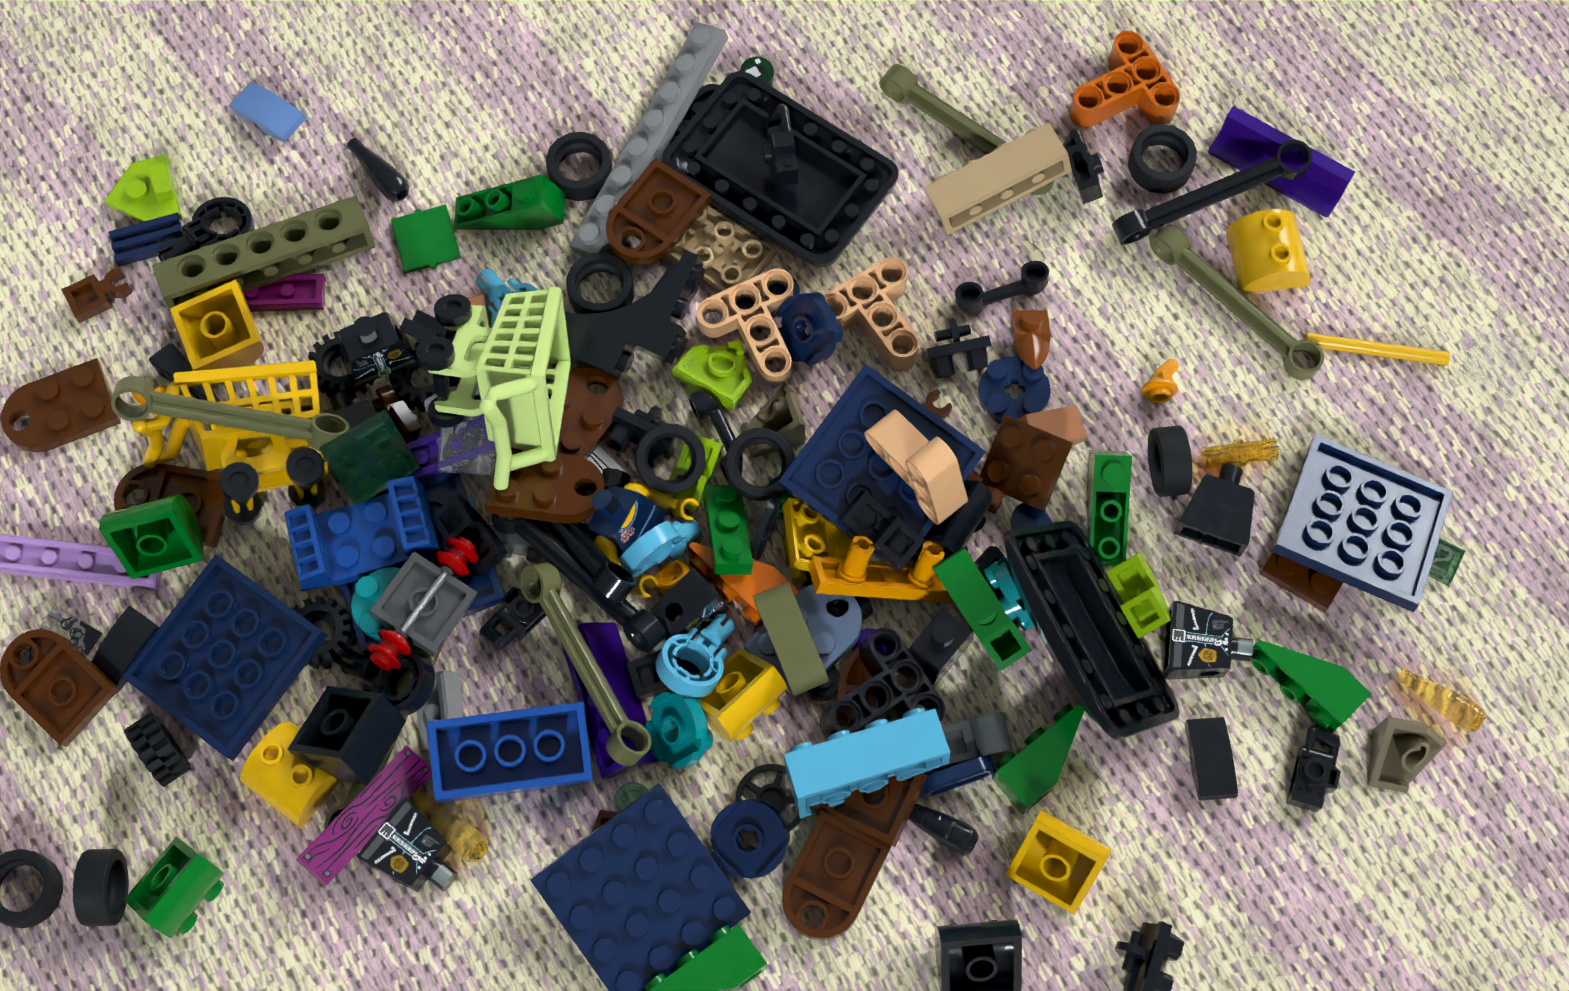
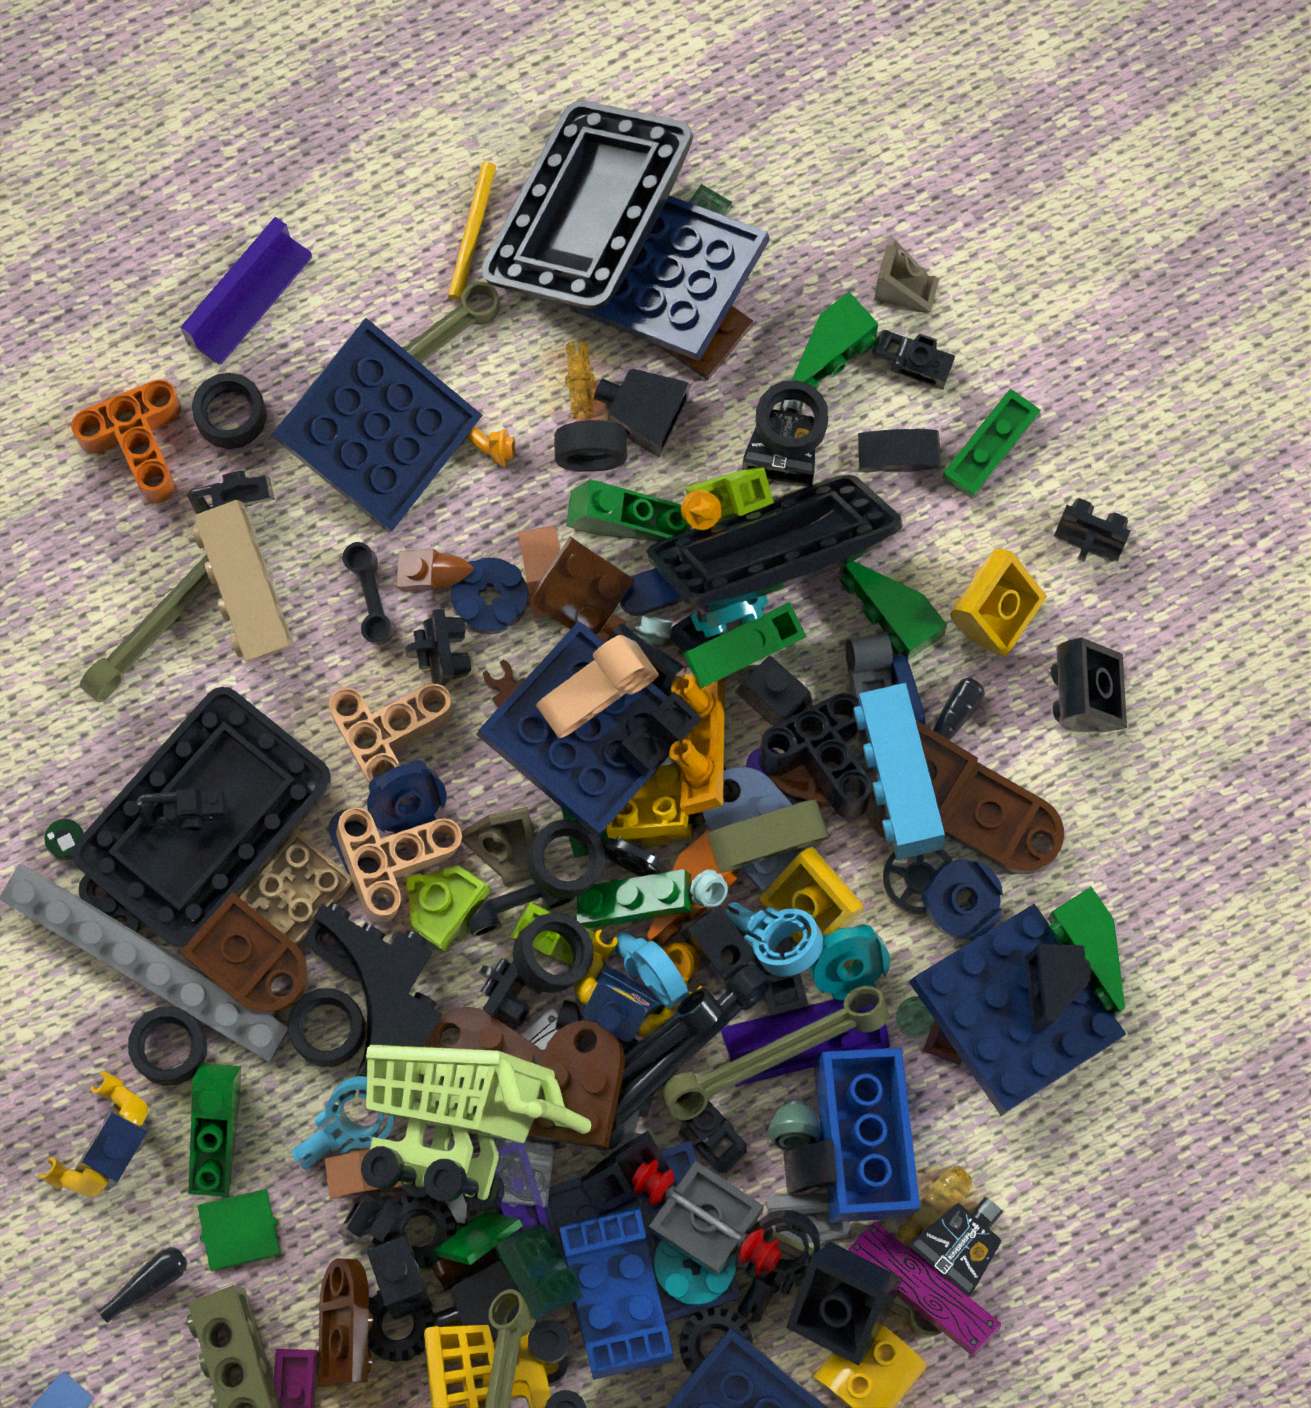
camera: 85 degrees left, 5 degrees up
(310, 320) = (344, 1325): none -> reddish brown plate
(405, 411) = (478, 1237): none -> green piece
(478, 702) = (810, 1166): none -> black slope
(494, 128) = (111, 1146): none -> torso
(521, 689) = (794, 1126): none -> sand green cone
(664, 926) = (1054, 980): none -> black slope
(736, 589) = (708, 889): none -> light aqua plate
(994, 533) = (654, 629): none -> light aqua plate
(1119, 566) = (701, 509): none -> light orange tile
(1140, 223) = (274, 333): black piece -> none
(1163, 273) = (376, 425): none -> dark blue plate
(1232, 851) = (991, 443): none -> green plate
(1236, 615) = (791, 391): none -> black tyre
(1267, 252) = (344, 306): yellow brick -> none
(1419, 440) = (588, 204): none -> black wedge
(1450, 704) = (855, 225): clear yellow piece -> none

